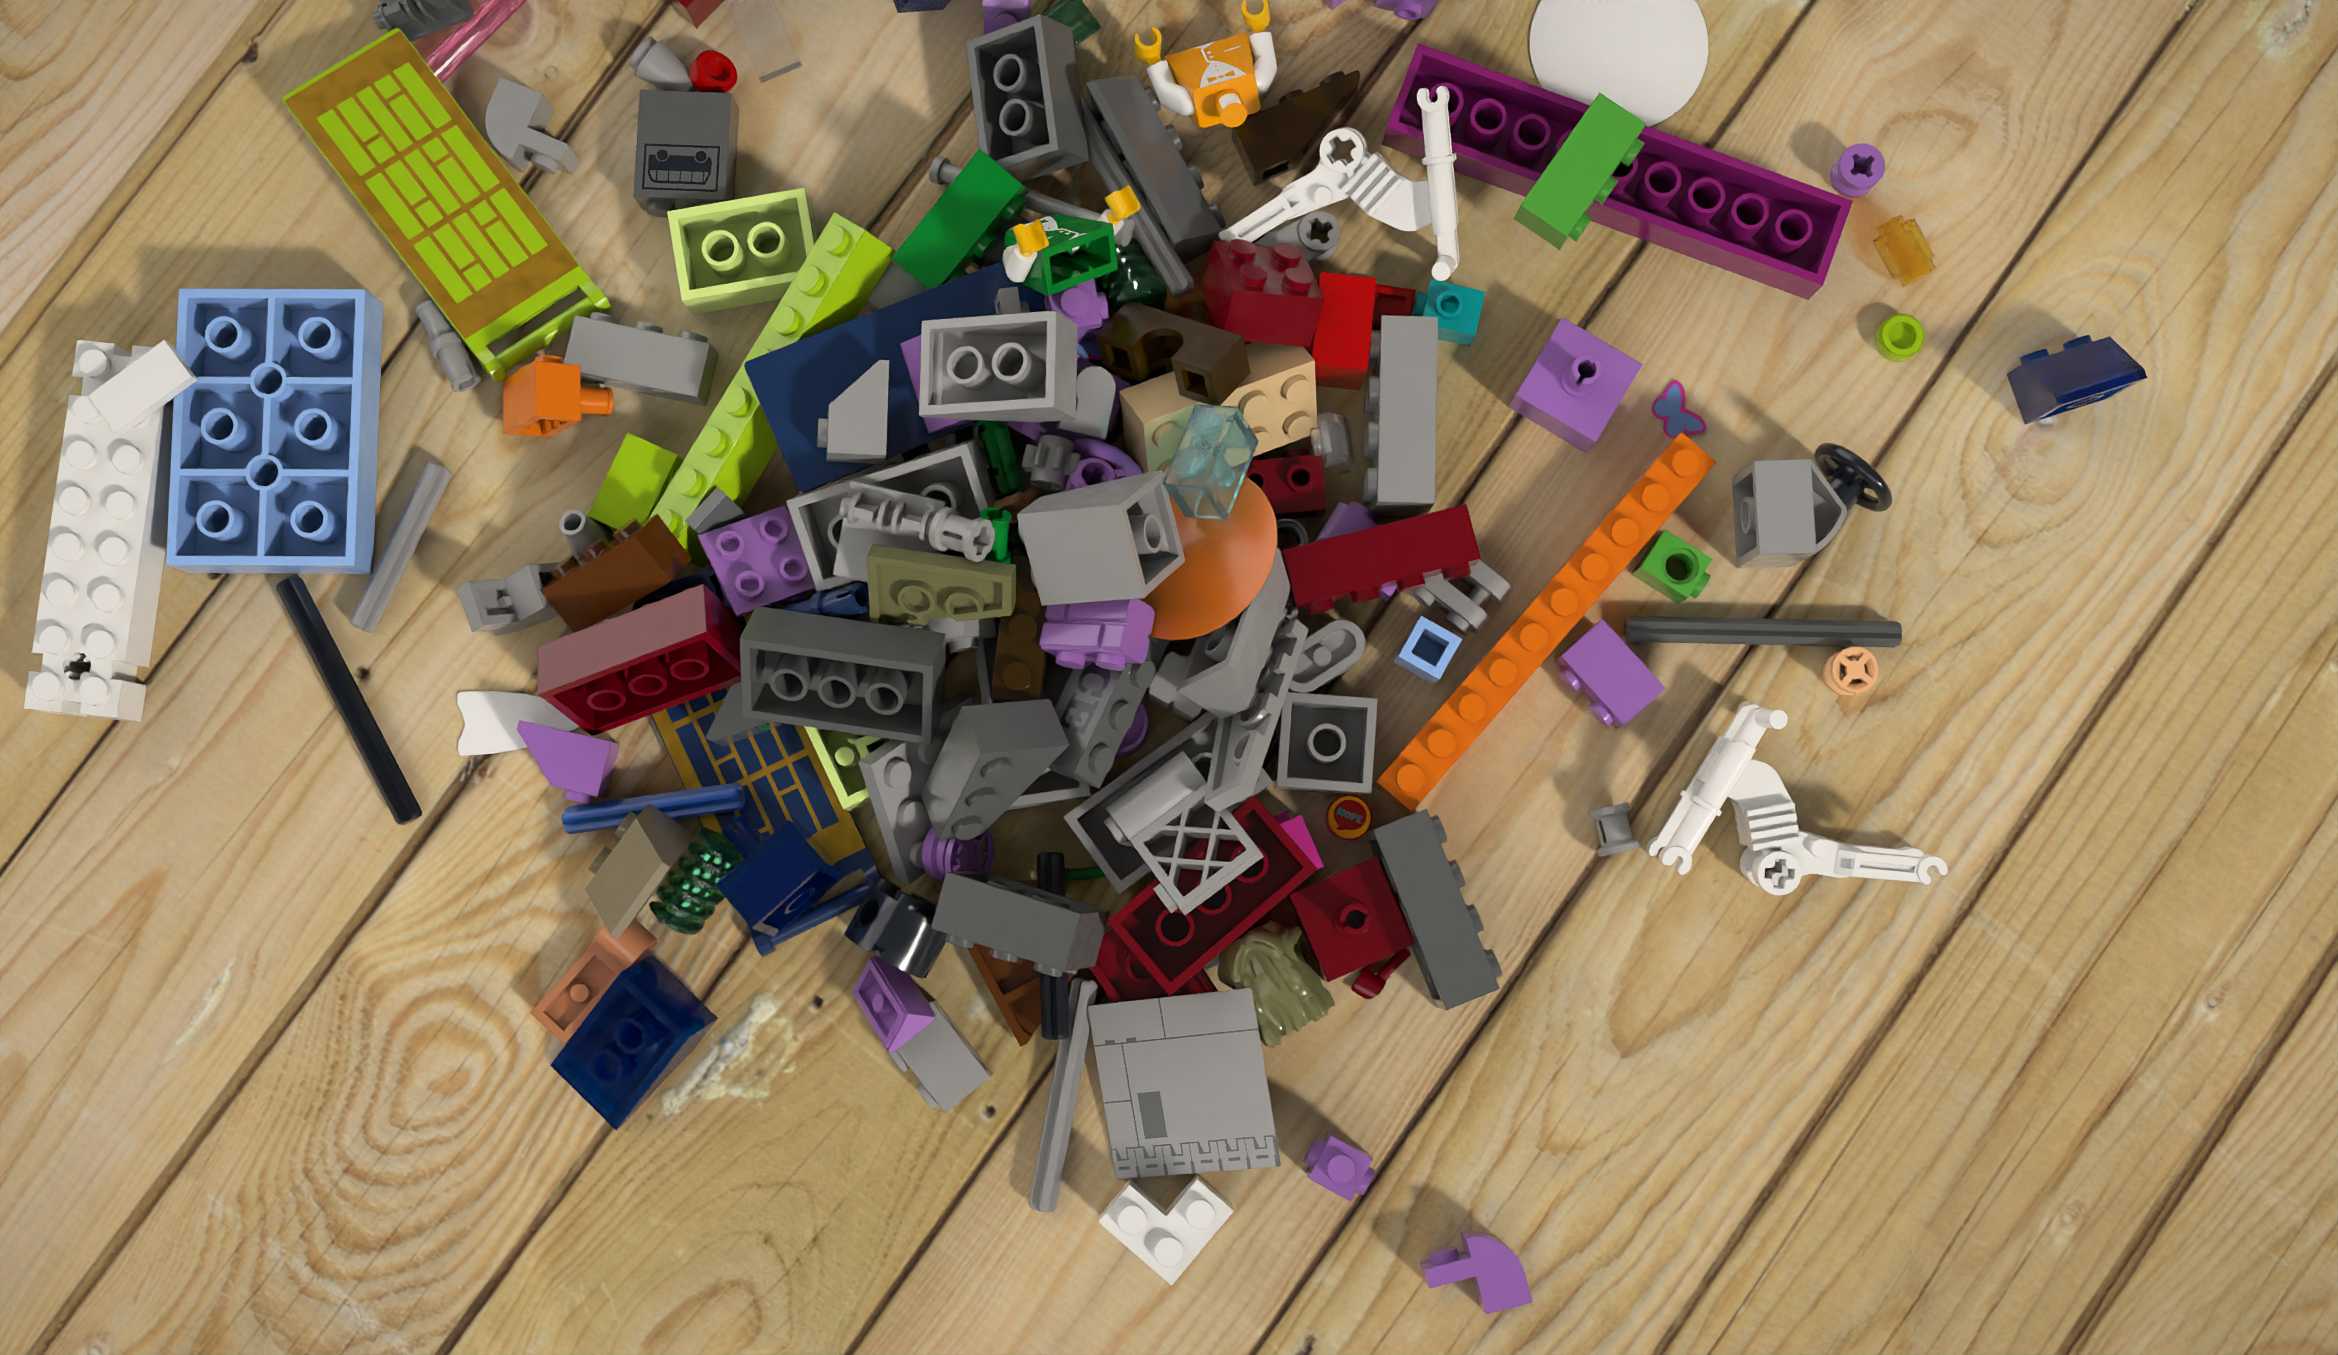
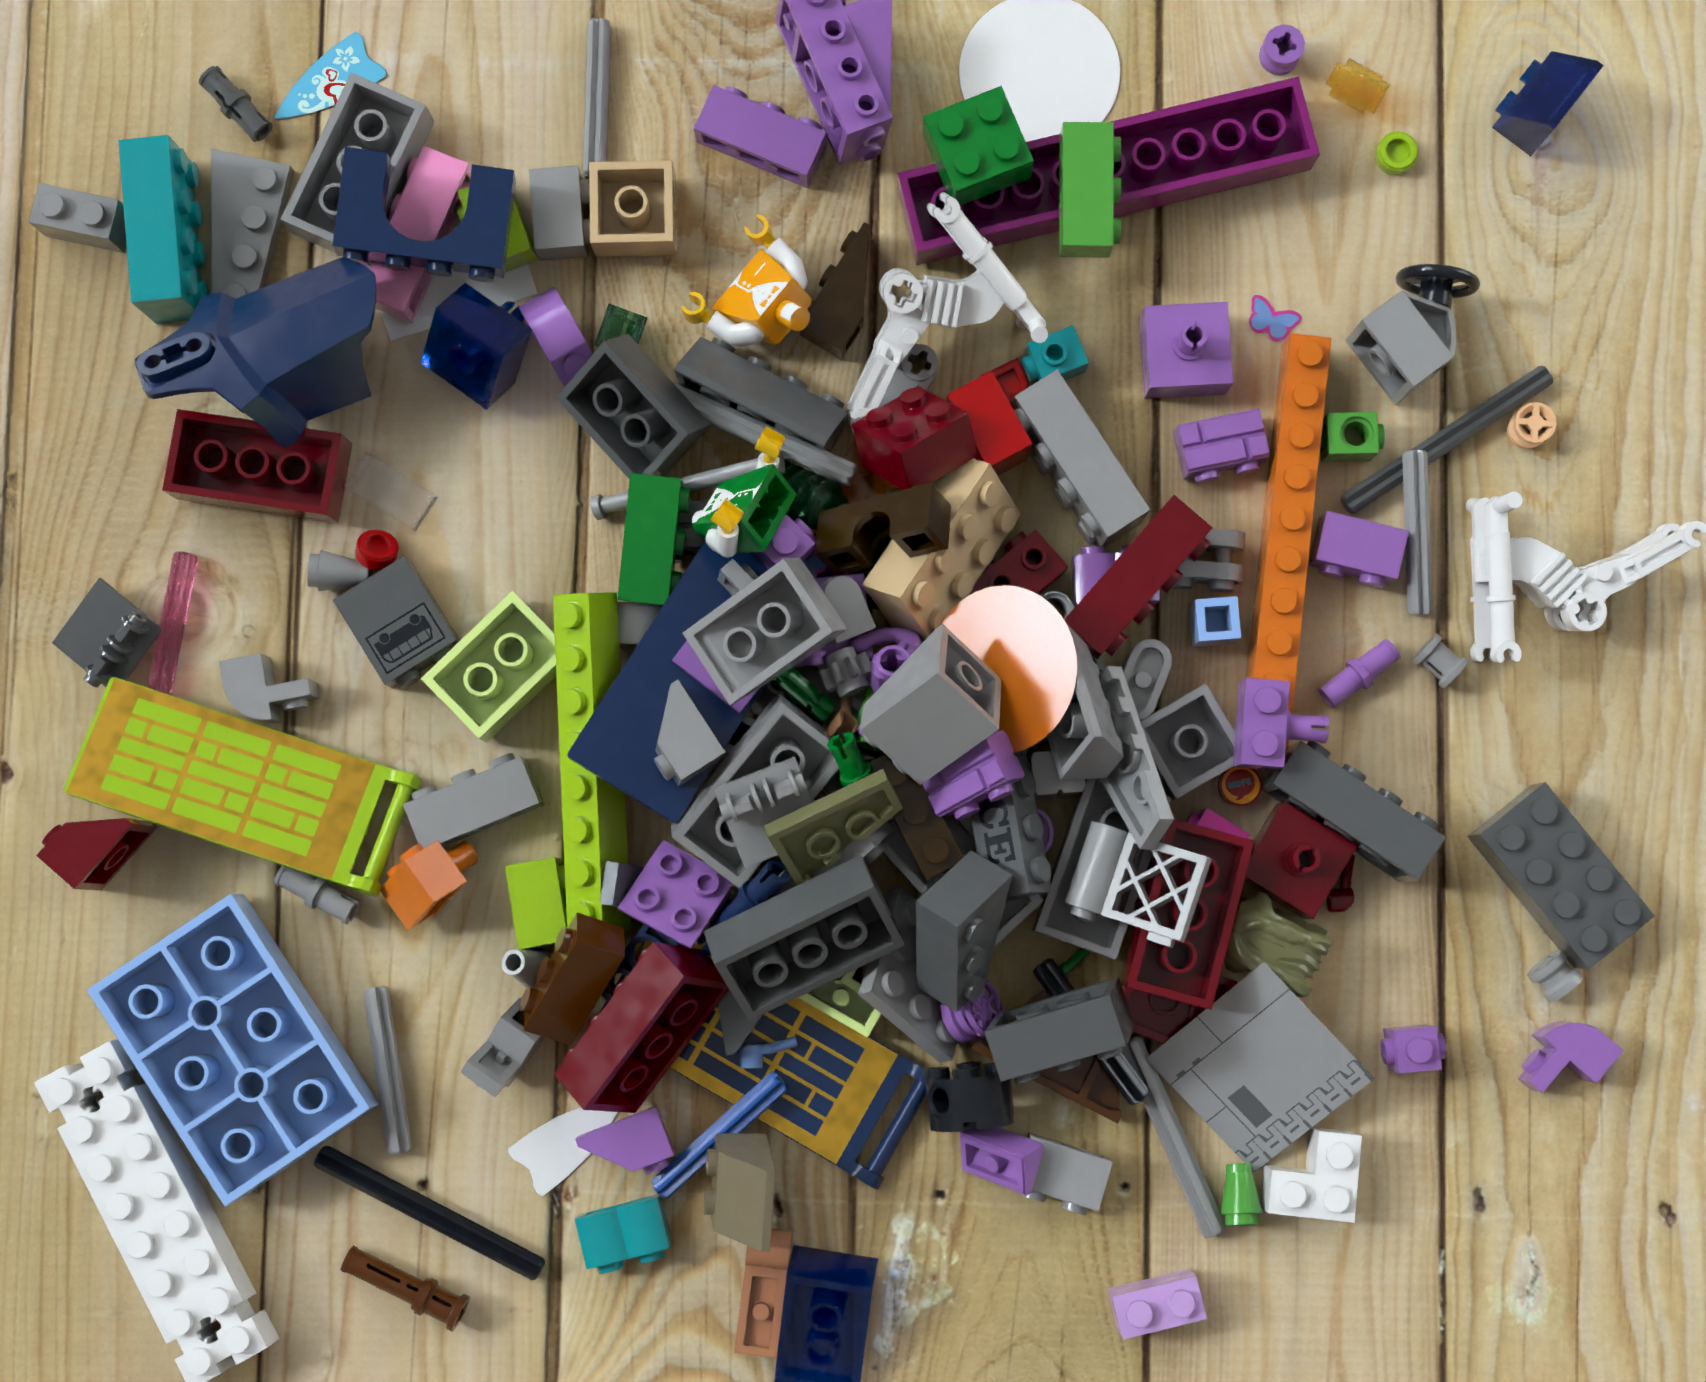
camera: 30 degrees left, 0 degrees up
(142, 387) = (113, 1084): white tile -> none
(273, 171) = (93, 851): none -> dark red slope
(286, 773) = (423, 1295): none -> reddish brown pin
(507, 837) = (623, 1233): none -> teal brick
(694, 891) = (797, 1166): clear green piece -> none
(732, 756) = (752, 1054): none -> medium blue hand
(777, 876) = (853, 1120): clear blue brick -> none
(941, 1234) = (1157, 1303): none -> lavender brick
(961, 534) = (827, 773): light grey bush -> none
(1086, 1192) = (1240, 1197): none -> bright green cone
(1210, 462) = (971, 592): clear light blue brick -> none
(1334, 442) = (1039, 514): clear slope -> none
(1406, 773) = (1267, 724): none -> medium lavender brick
(1506, 65) = (977, 146): none -> green brick
(1518, 1191) = (1555, 976): none -> light grey wheel
(1530, 790) = (1359, 673): none -> medium lavender pin
(1547, 495) = (1221, 445): none -> medium lavender brick
(1587, 1103) = (1561, 876): none -> dark grey brick
(1674, 697) = (1418, 524): none -> light grey axle

